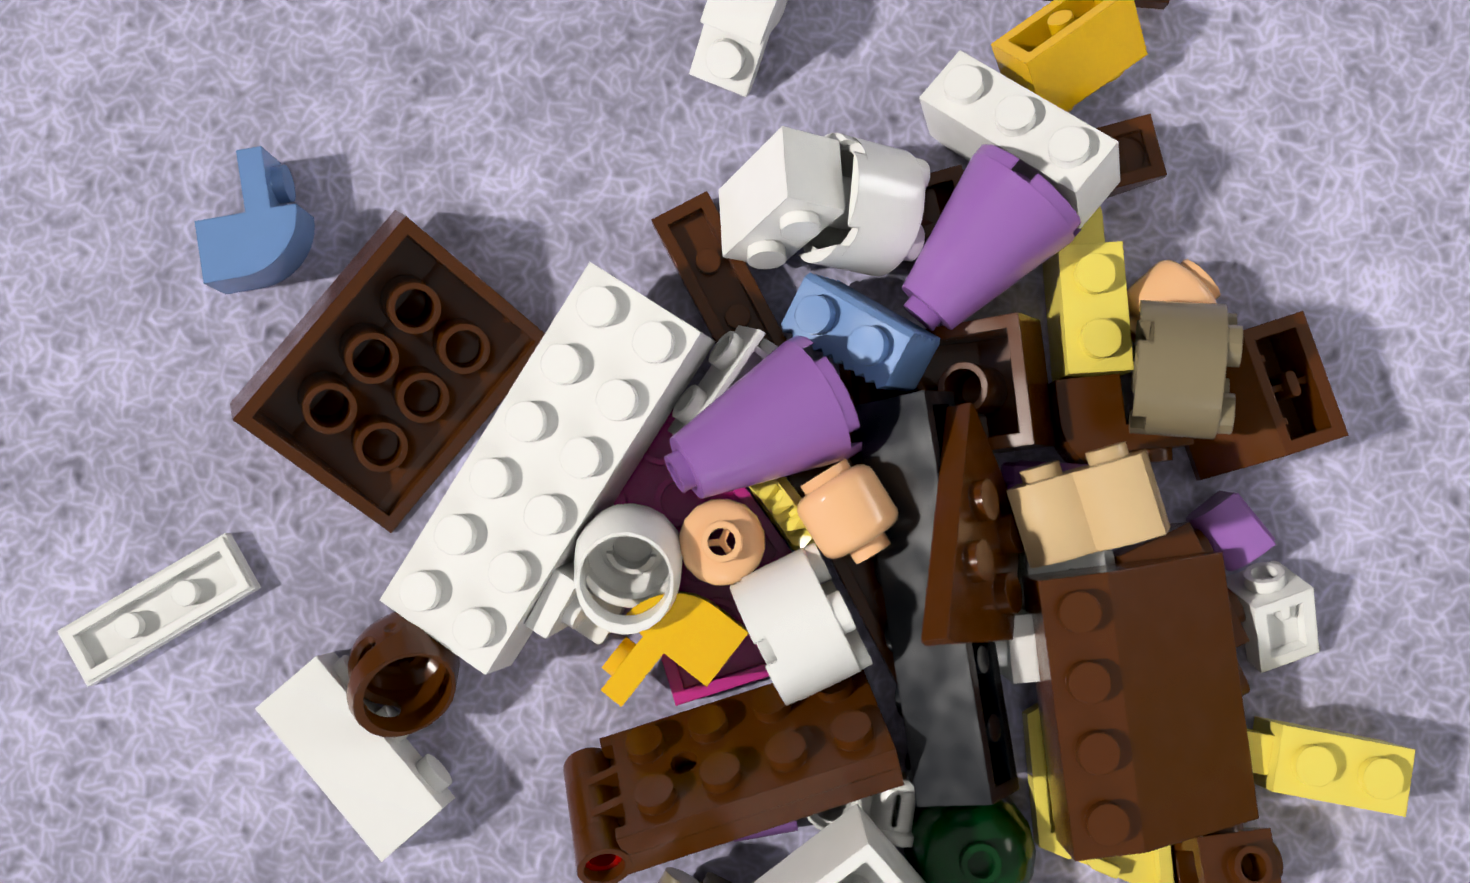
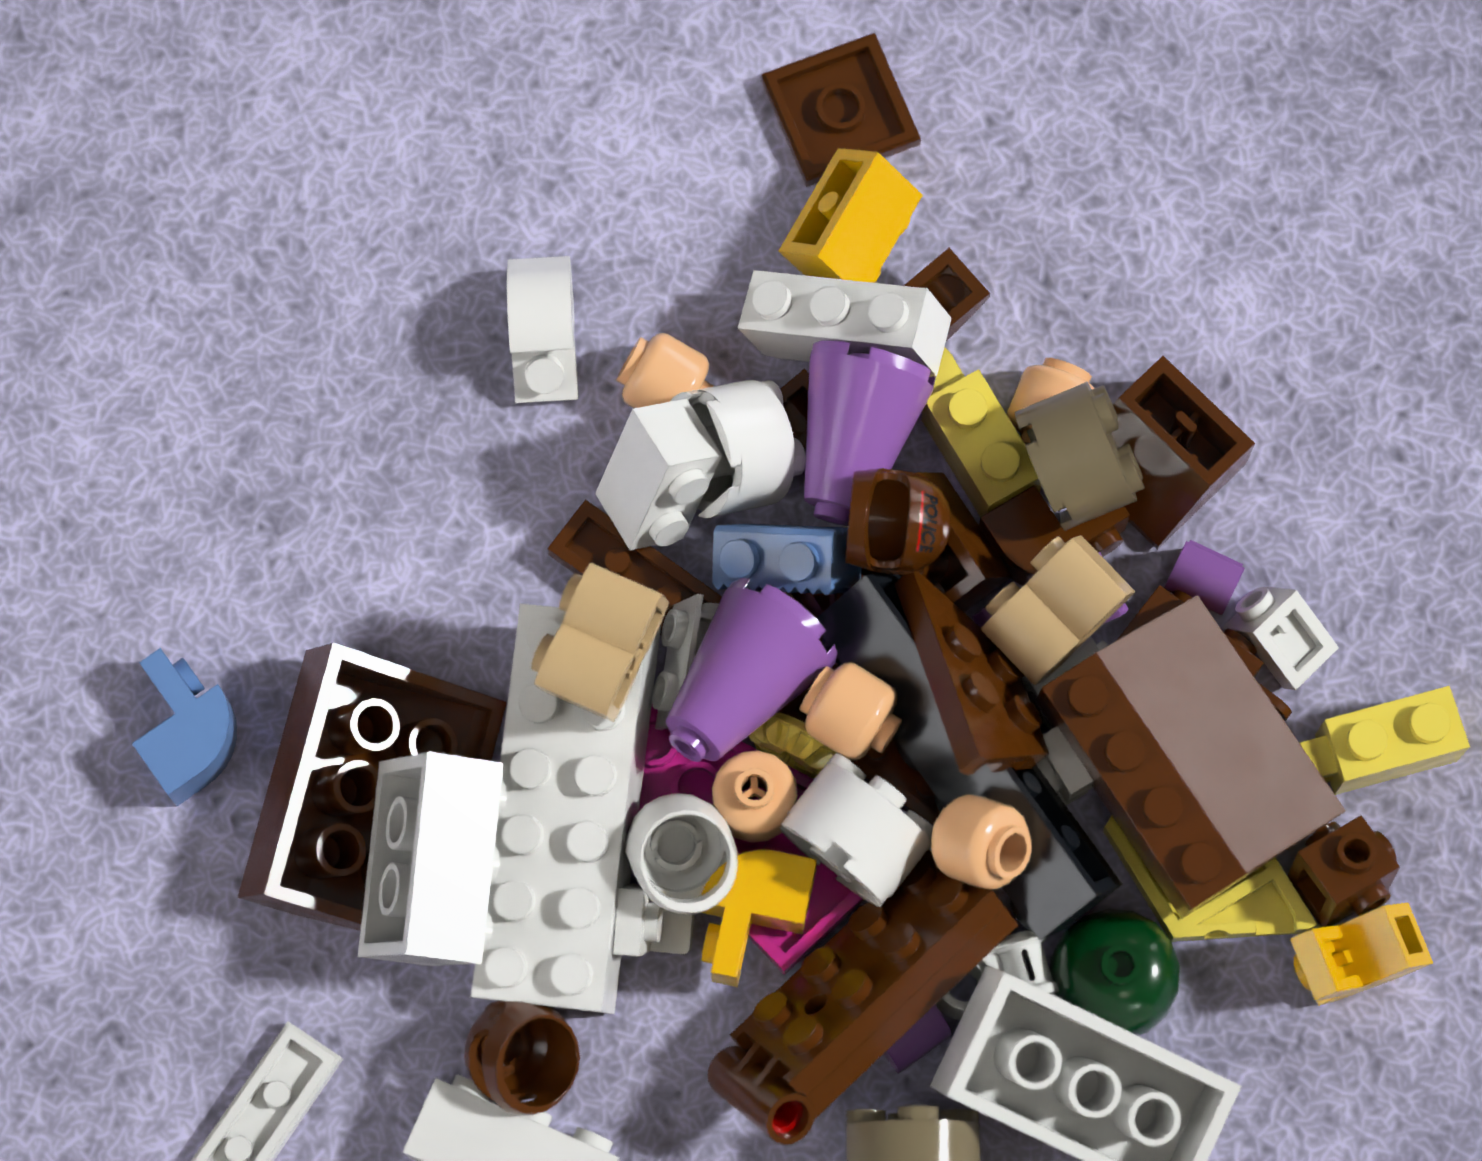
camera: 25 degrees left, 10 degrees down
(398, 466) = (432, 860): none -> white brick
(637, 337) = (599, 641): none -> tan brick
(831, 105) = (661, 370): none -> light nougat head
(907, 700) = (980, 842): none -> light nougat head
(978, 353) = (896, 521): none -> reddish brown helmet

